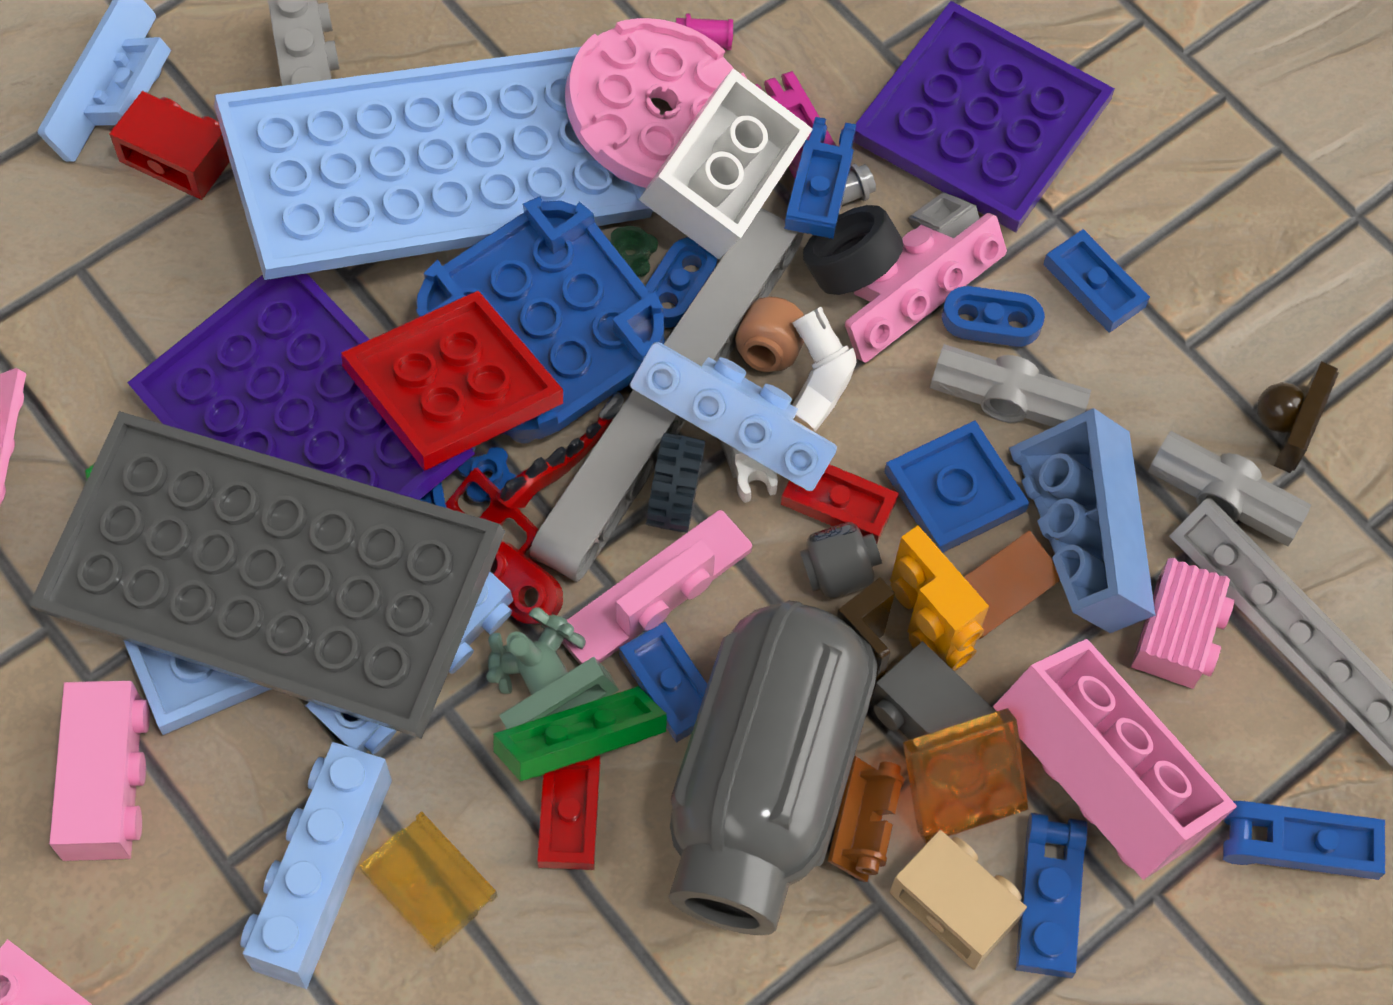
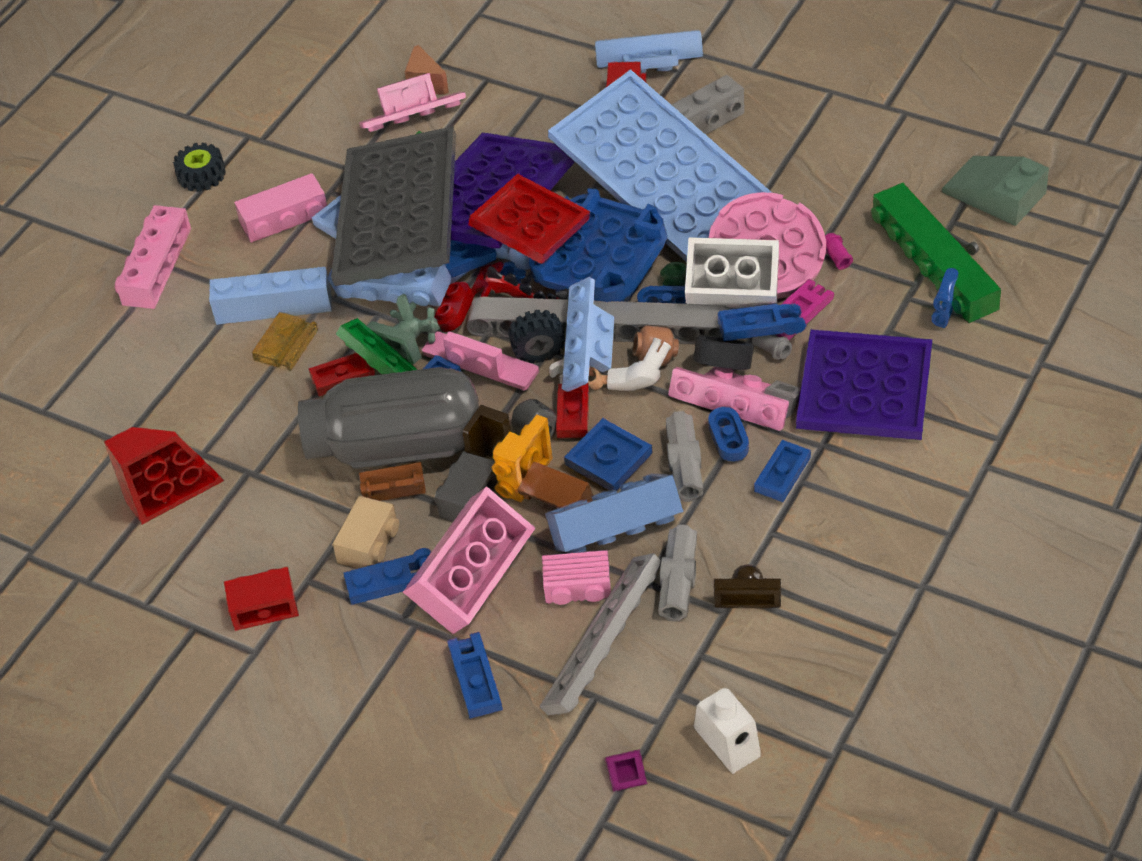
camera: 75 degrees right, 15 degrees down
(966, 775) = (429, 504): clear orange plate -> none

